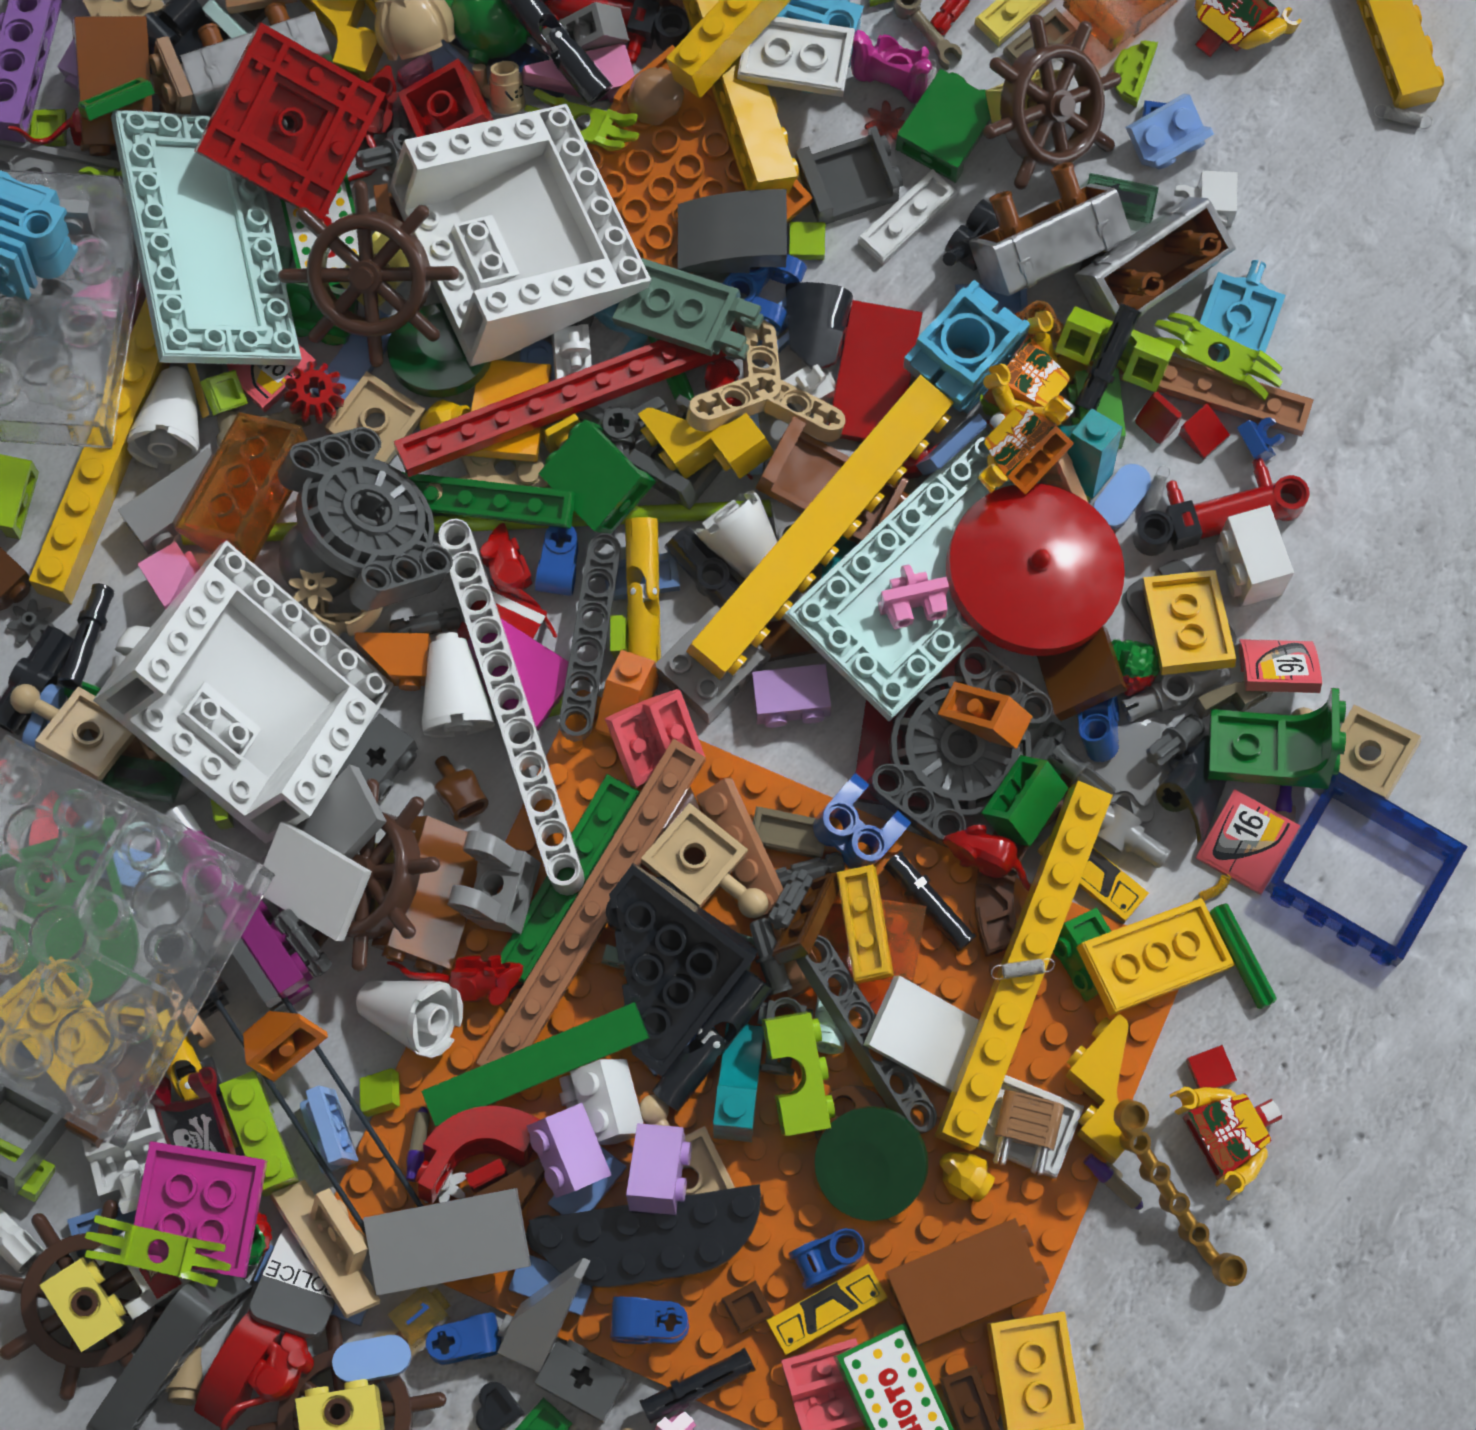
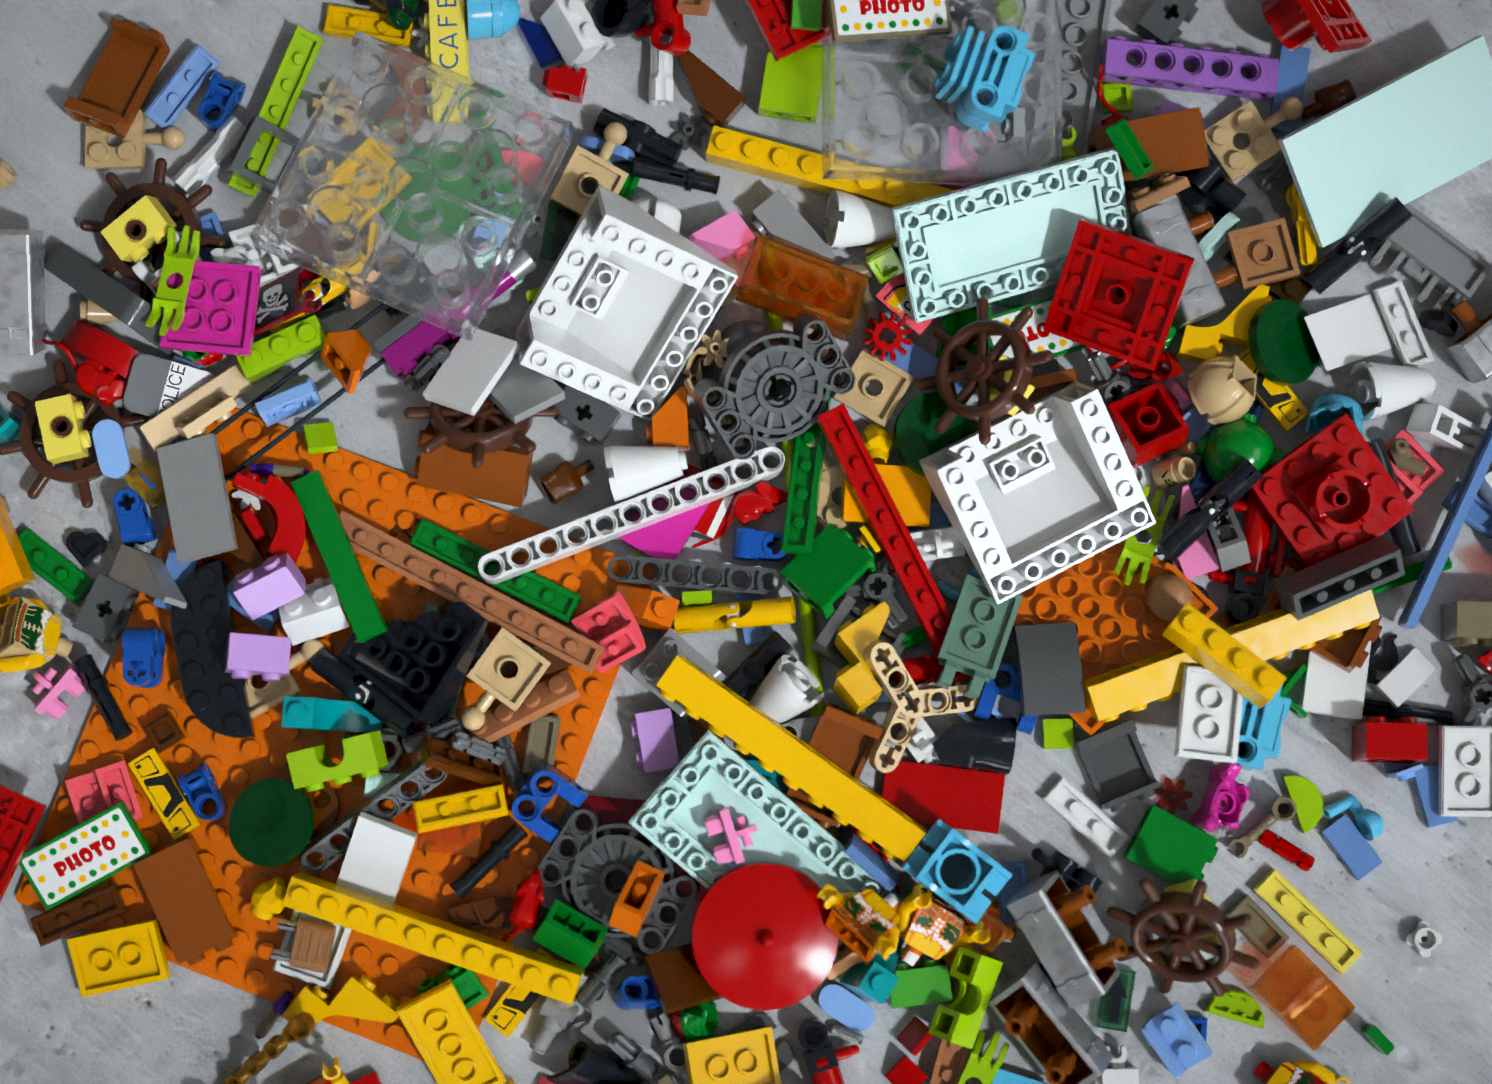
camera: 85 degrees right, 10 degrees up
(413, 1012) = (377, 457): white cone -> none
(475, 978) = (408, 505): red animal -> none
(496, 866) = (464, 507): light grey brick -> none
(1022, 968) = (420, 935): white piece -> none
(1107, 359) = (946, 988): black pin -> none

